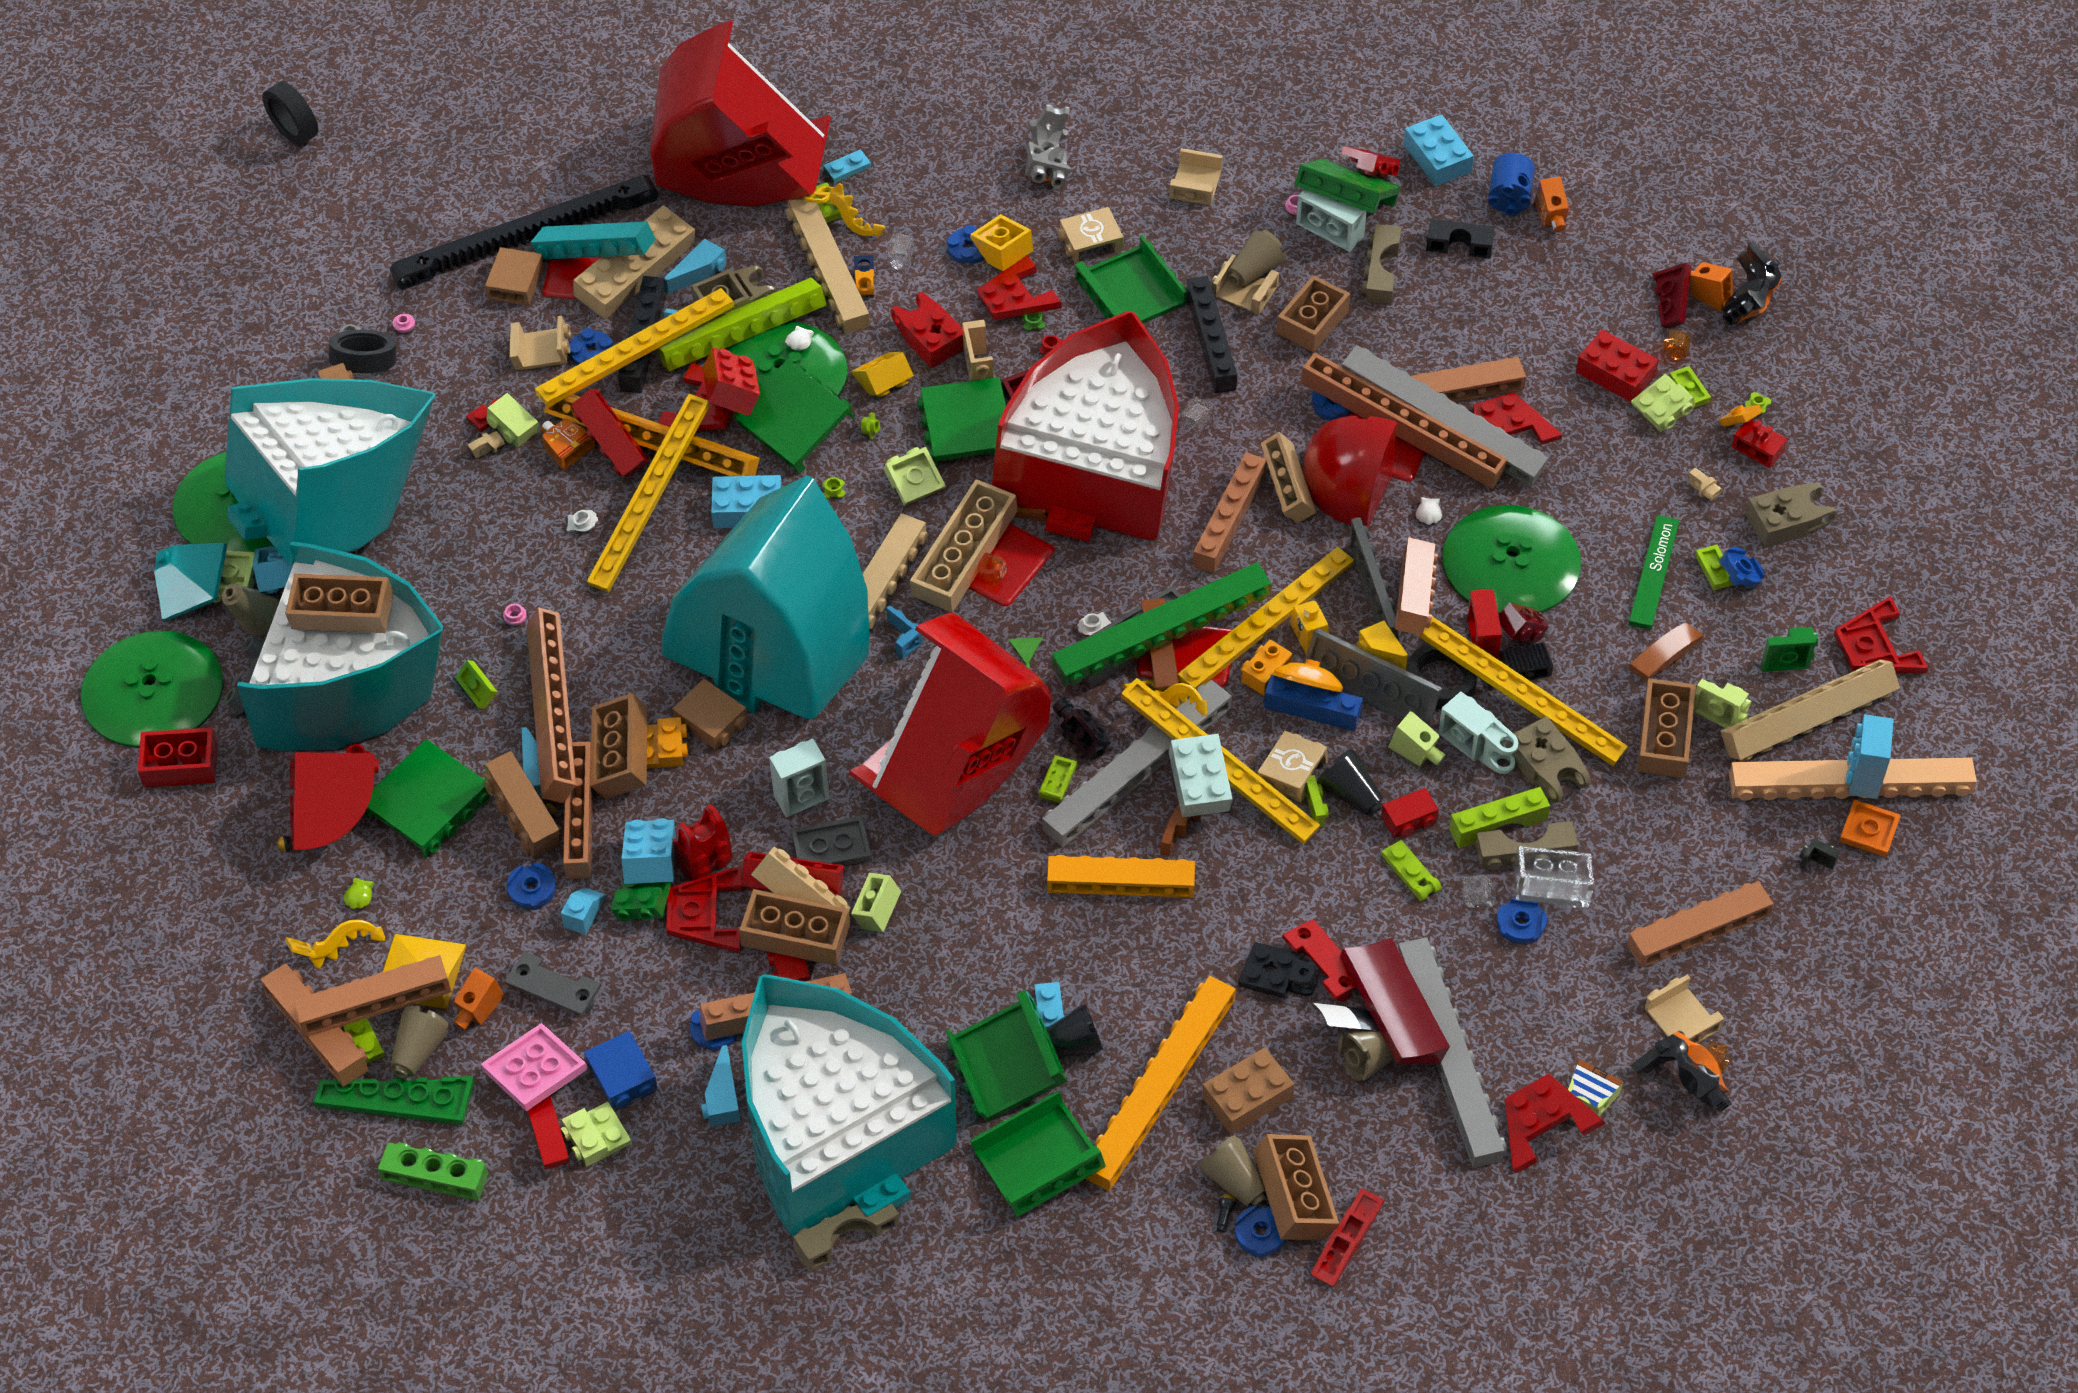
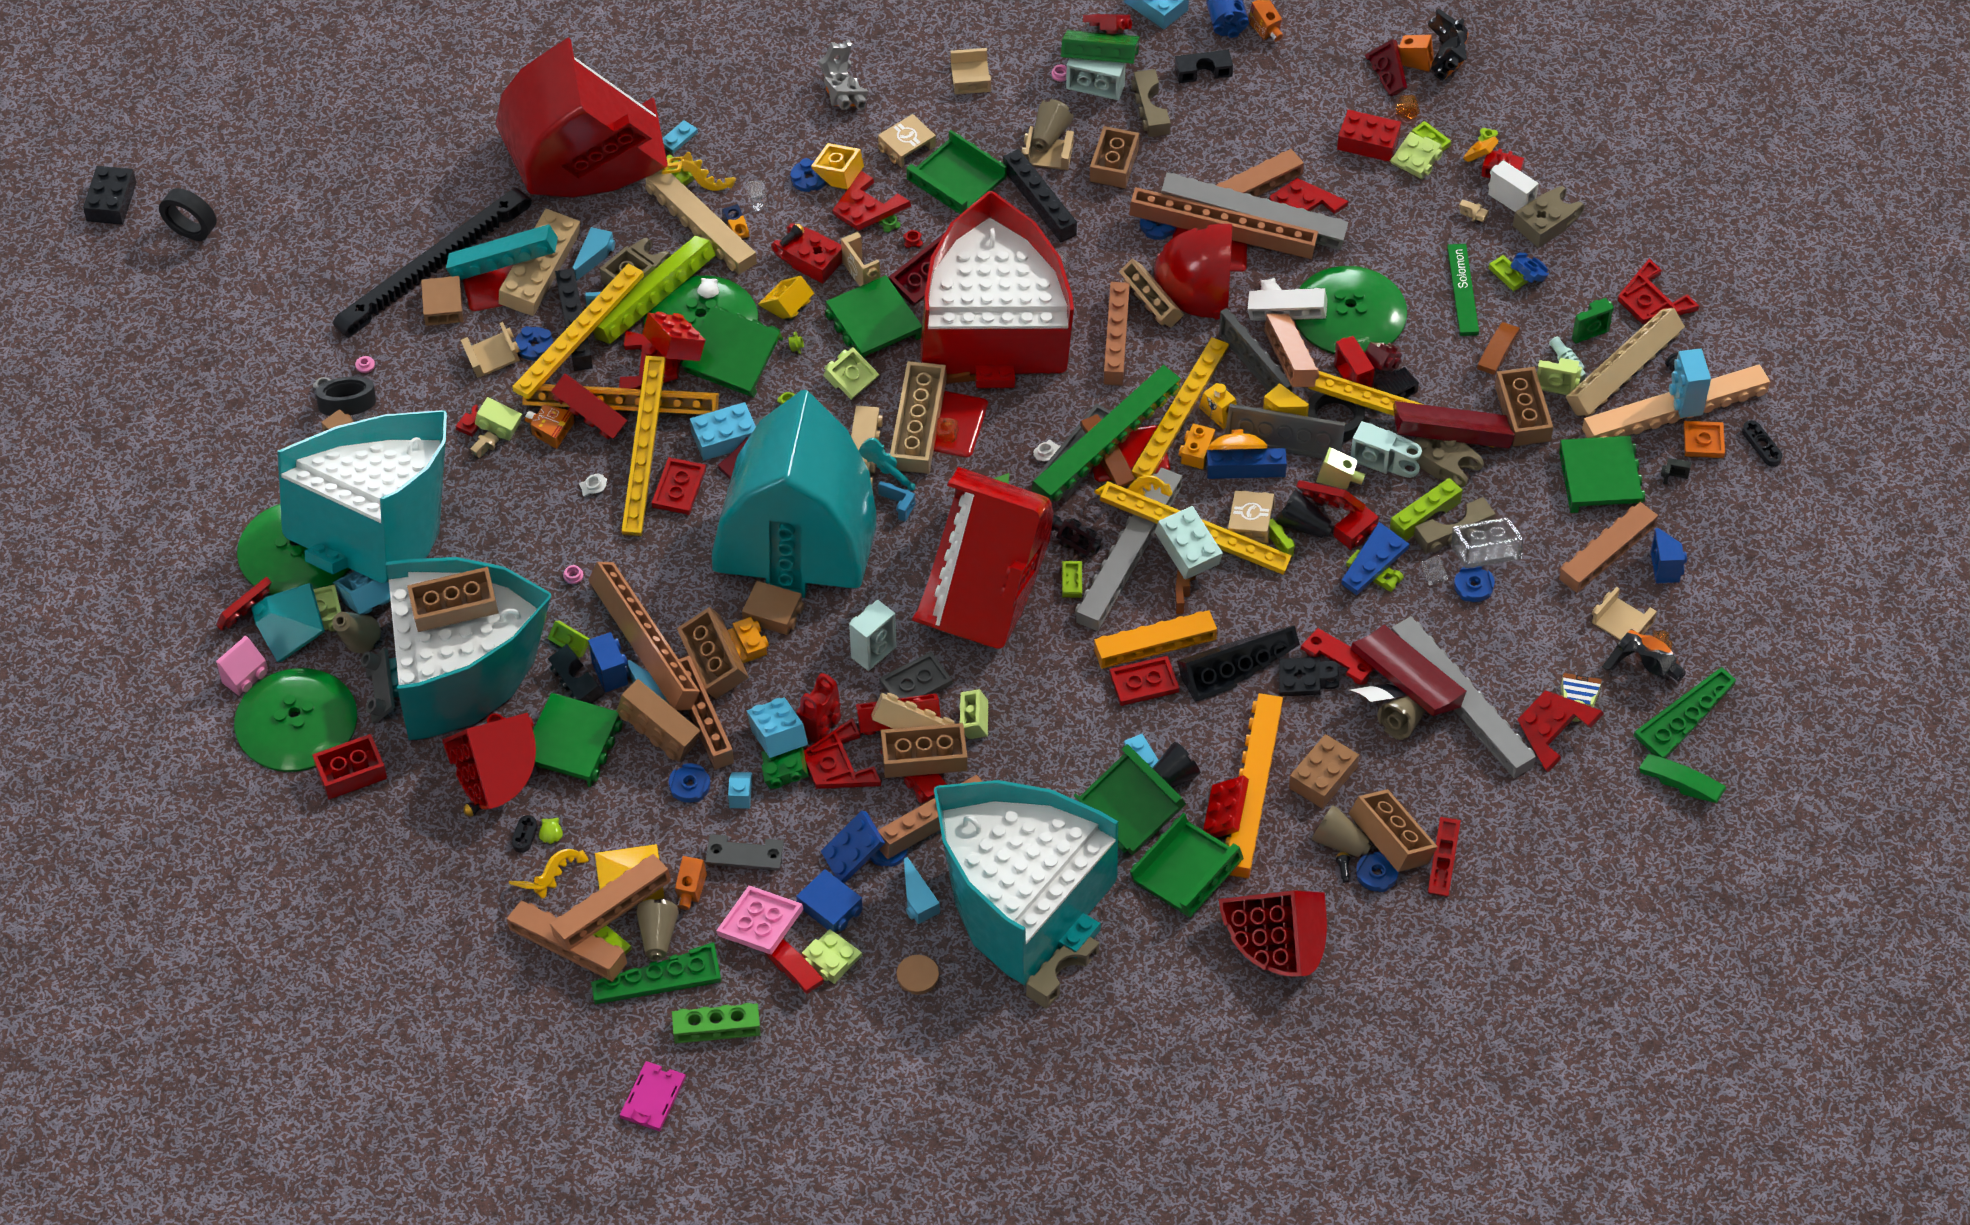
camera: 20 degrees left, 0 degrees up
(118, 613) = (241, 666): none -> bright pink slope
(148, 547) = (244, 604): none -> red plate
(227, 73) = (109, 195): none -> black brick
(328, 1233) = (652, 1095): none -> dark pink piece
(329, 888) = (520, 833): none -> black beam
(457, 713) = (566, 665): none -> black arch
(502, 722) = (608, 661): none -> blue brick
(670, 1014) = (852, 846): none -> blue plate
(672, 548) = (678, 486): none -> red plate
(682, 1185) = (917, 974): none -> medium nougat tile
(896, 573) = (874, 451): none -> teal piece
(921, 301) = (796, 231): none -> black piece
(1088, 921) = (1144, 680): none -> red plate
(1110, 1267) = (1279, 929): none -> red brick
(1113, 1099) = (1226, 807): none -> red plate
(1192, 931) = (1231, 663): none -> black wedge
(1394, 772) = (1332, 496): none -> red plate
(1416, 854) = (1376, 556): none -> blue wing
(1448, 534) = (1296, 303): none -> white brick
(1569, 725) = (1452, 424): none -> dark red arch
(1675, 1231) = (1686, 779): none -> green slope
(1698, 1158) = (1676, 721): none -> green wing
(1728, 831) = (1600, 471): none -> green panel
(1746, 683) = (1566, 353): none -> light aqua hinge
(1757, 467) = (1511, 186): none -> white brick
(1764, 959) = (1667, 557): none -> blue slope
(1941, 844) = (1761, 435): none -> black beam

